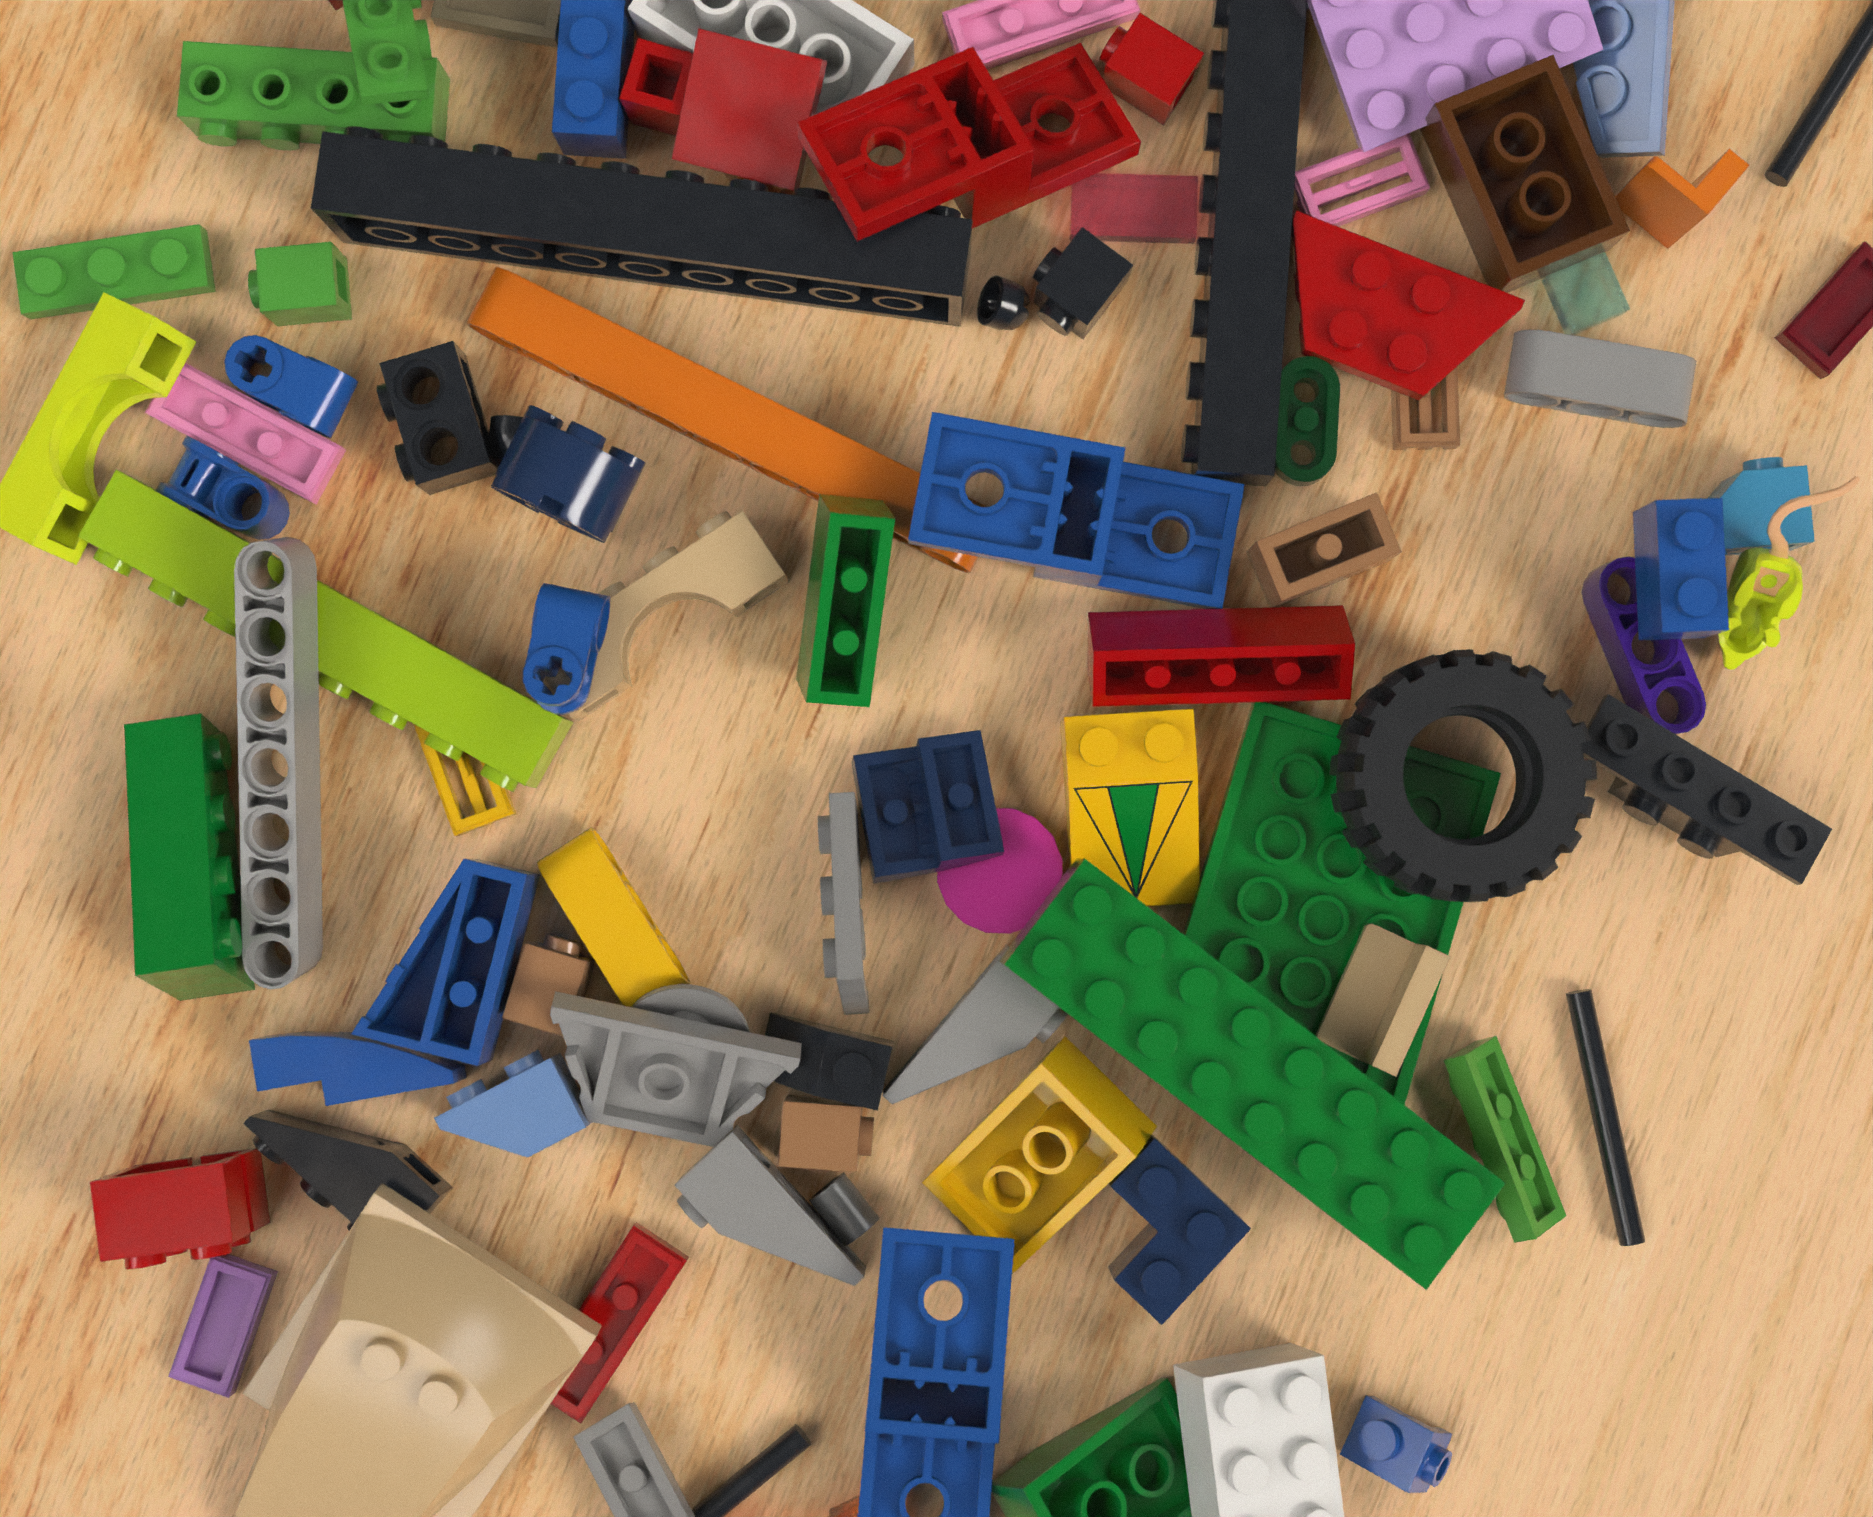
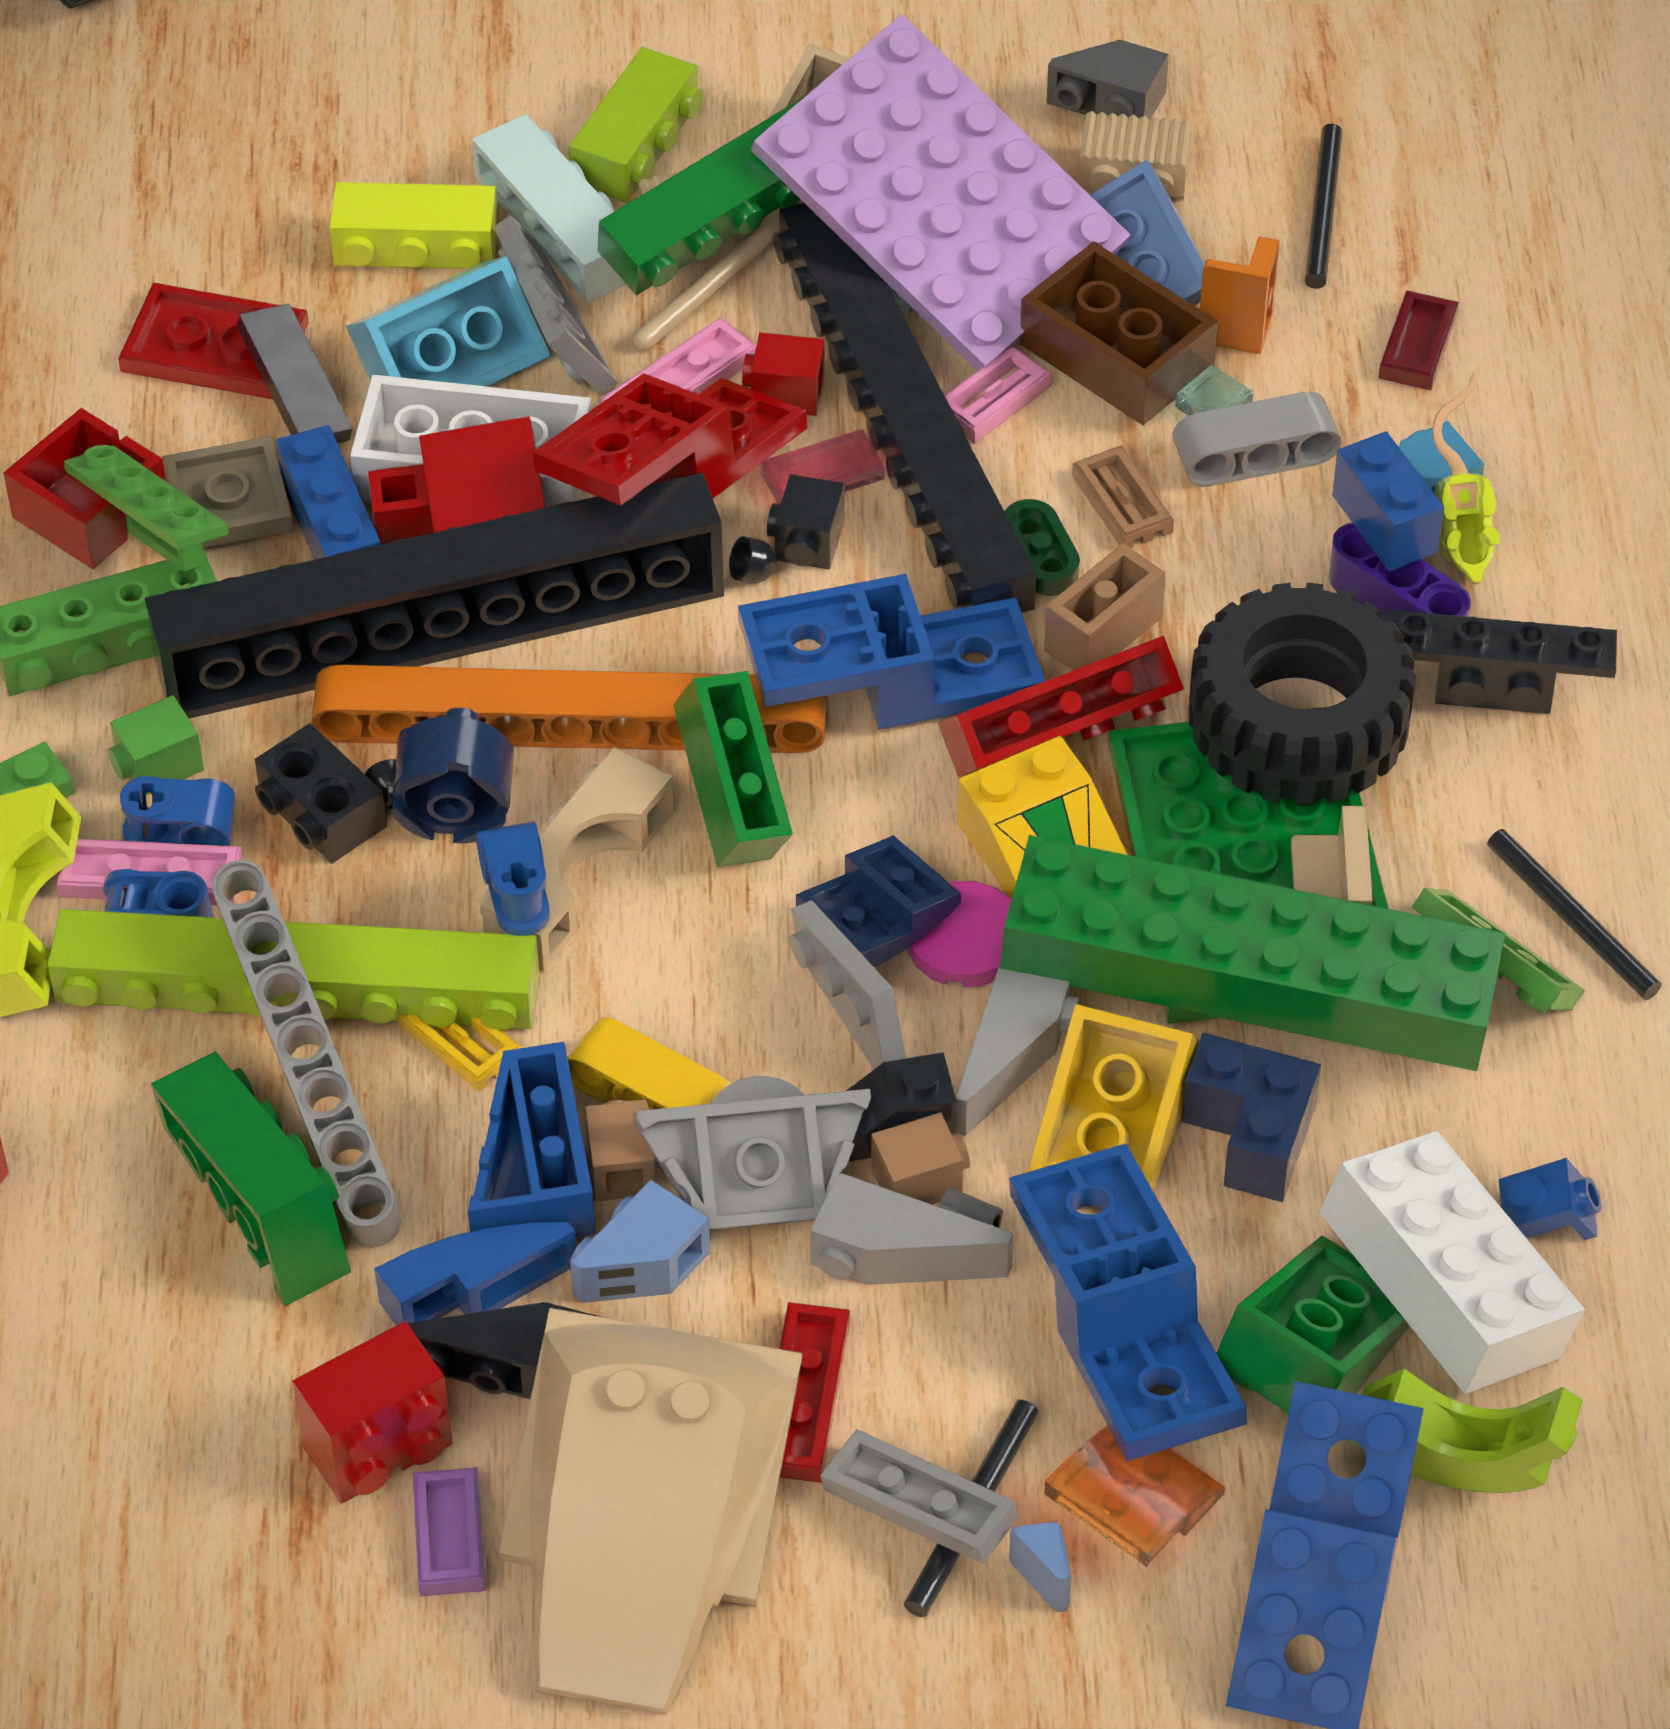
camera: 25 degrees left, 35 degrees down
(1388, 310) = (1064, 451): red wing -> none

